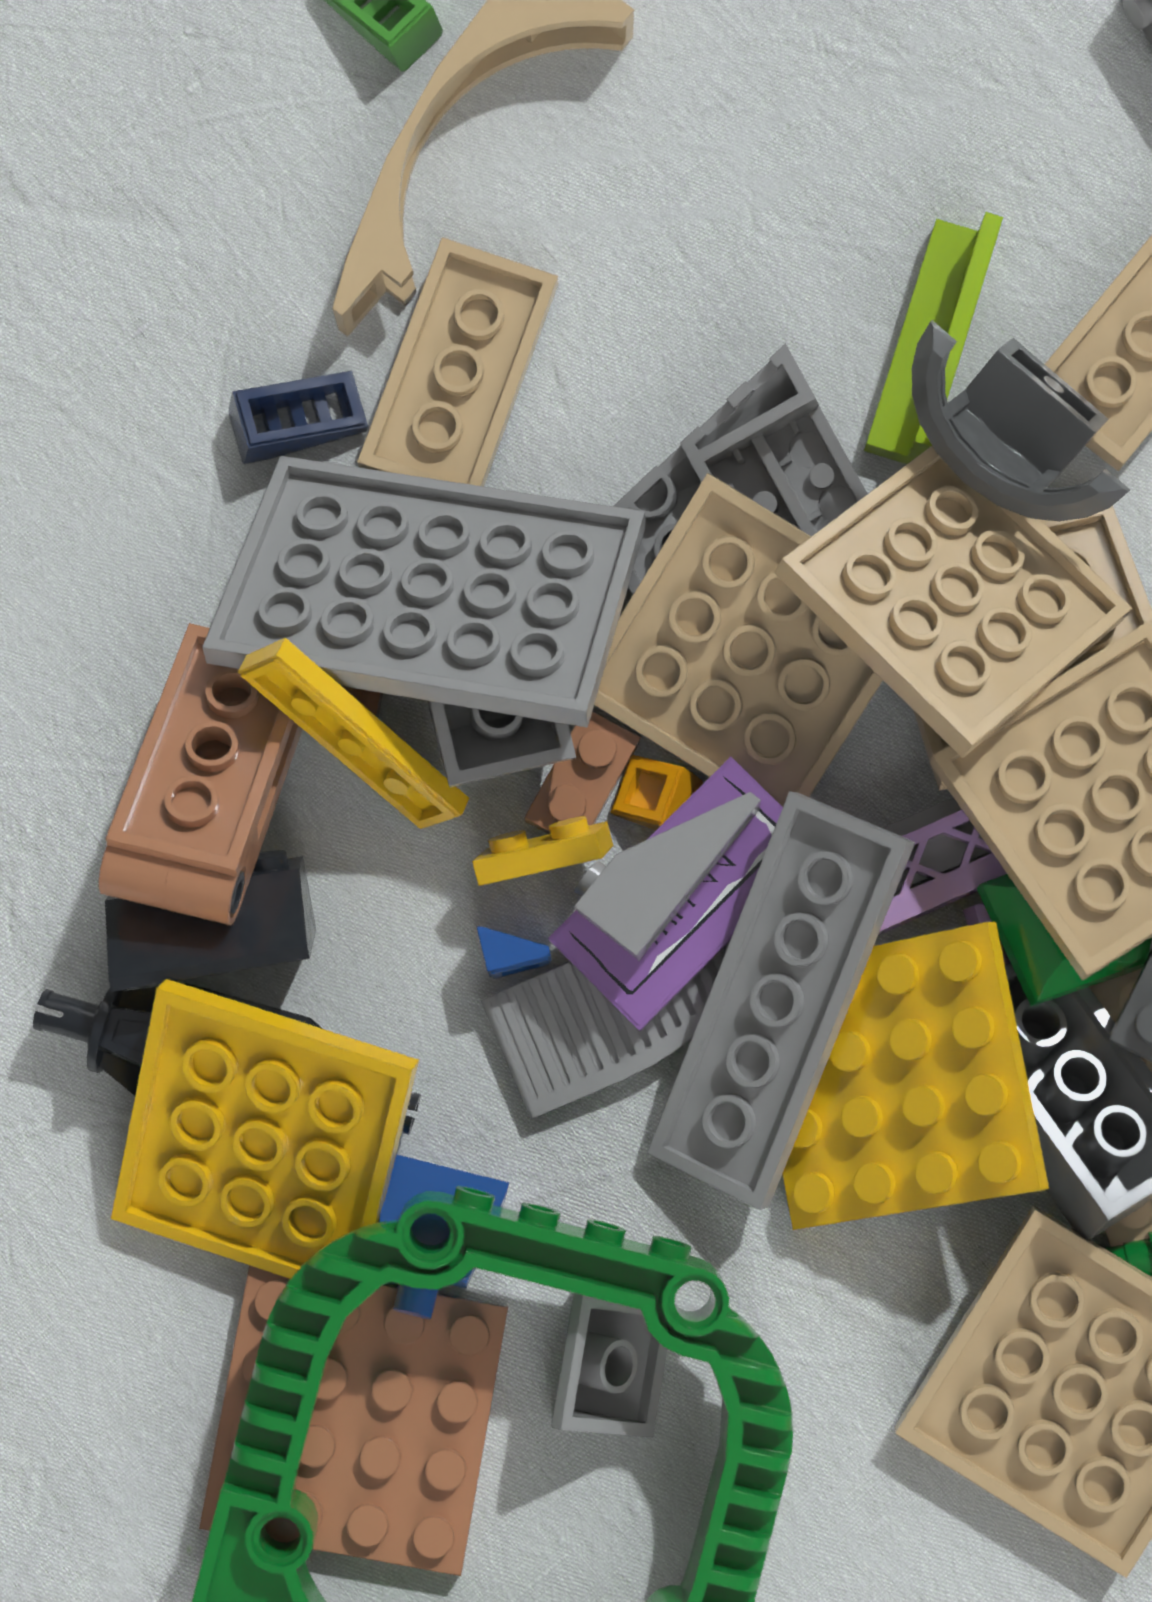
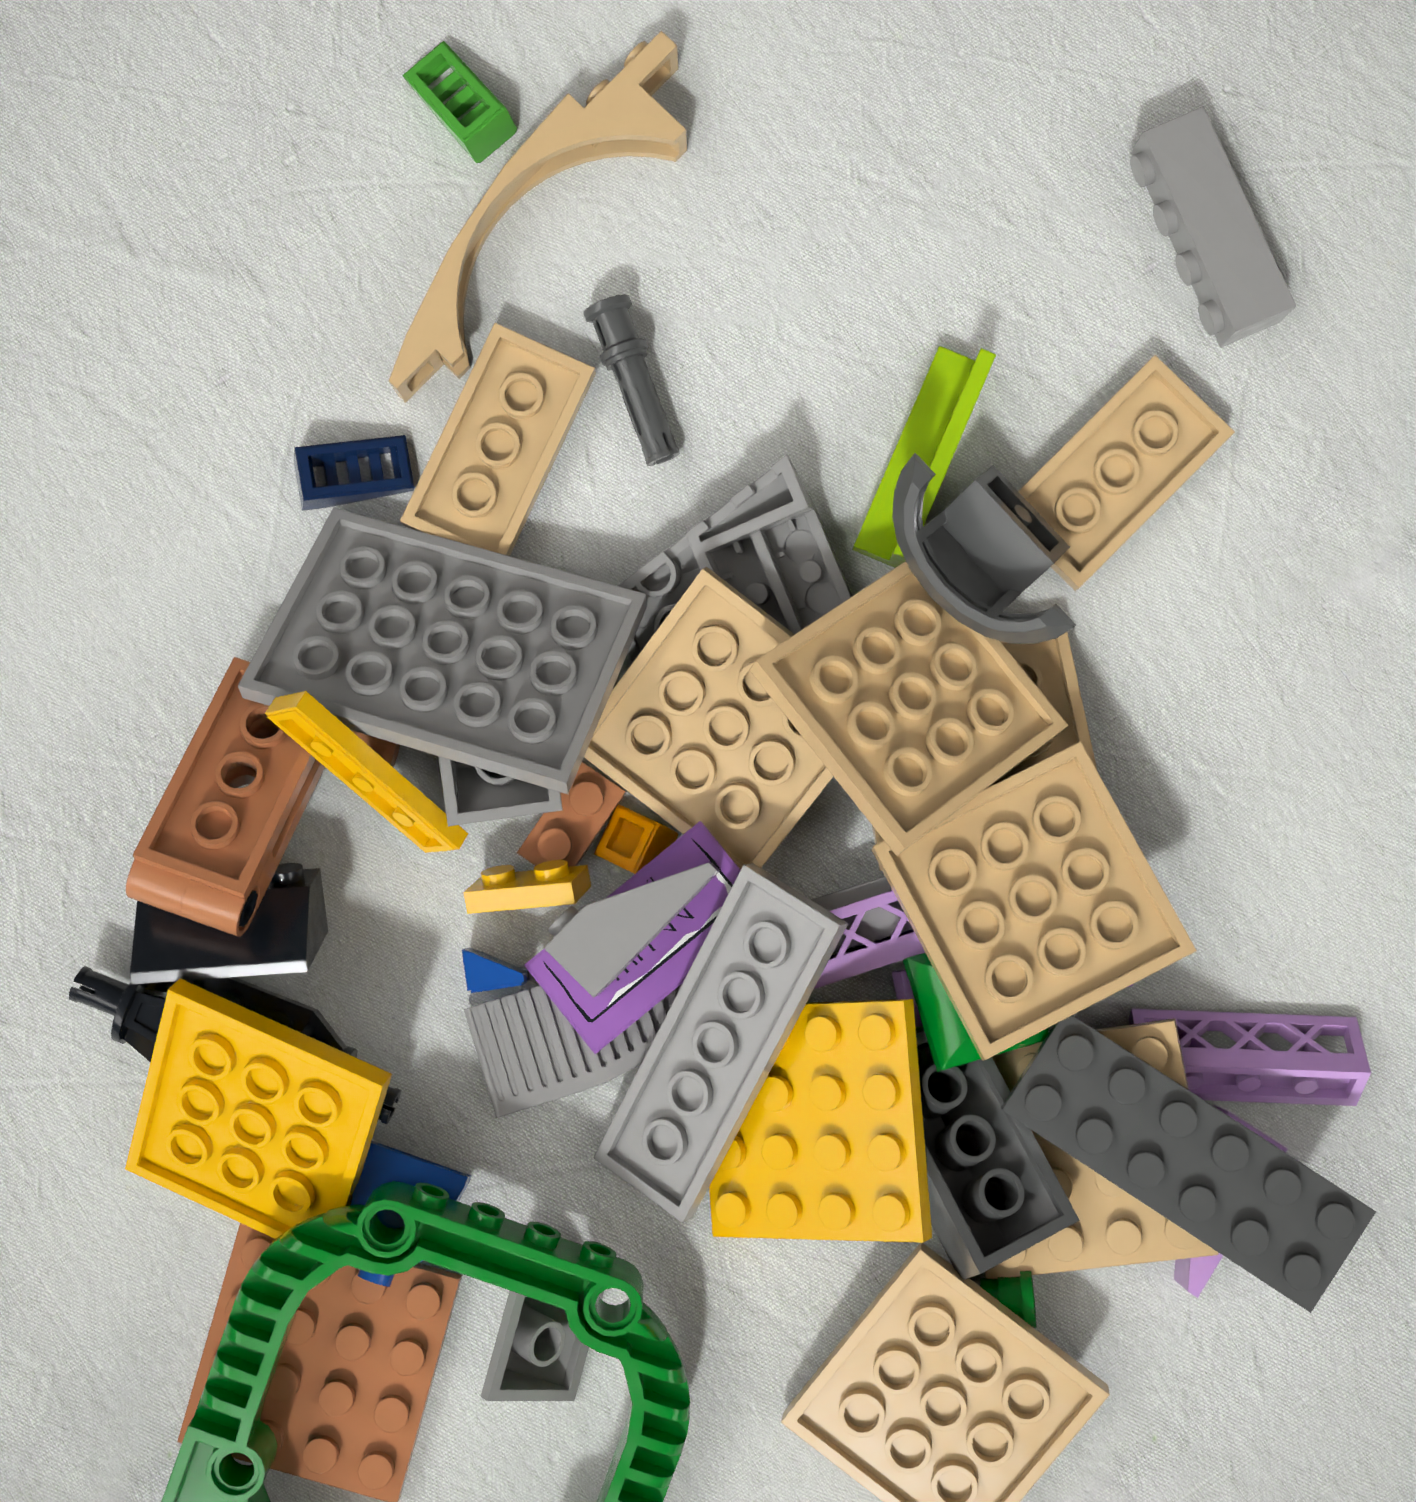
camera: 10 degrees right, 5 degrees up
(590, 261) = (625, 357): none -> dark grey pin

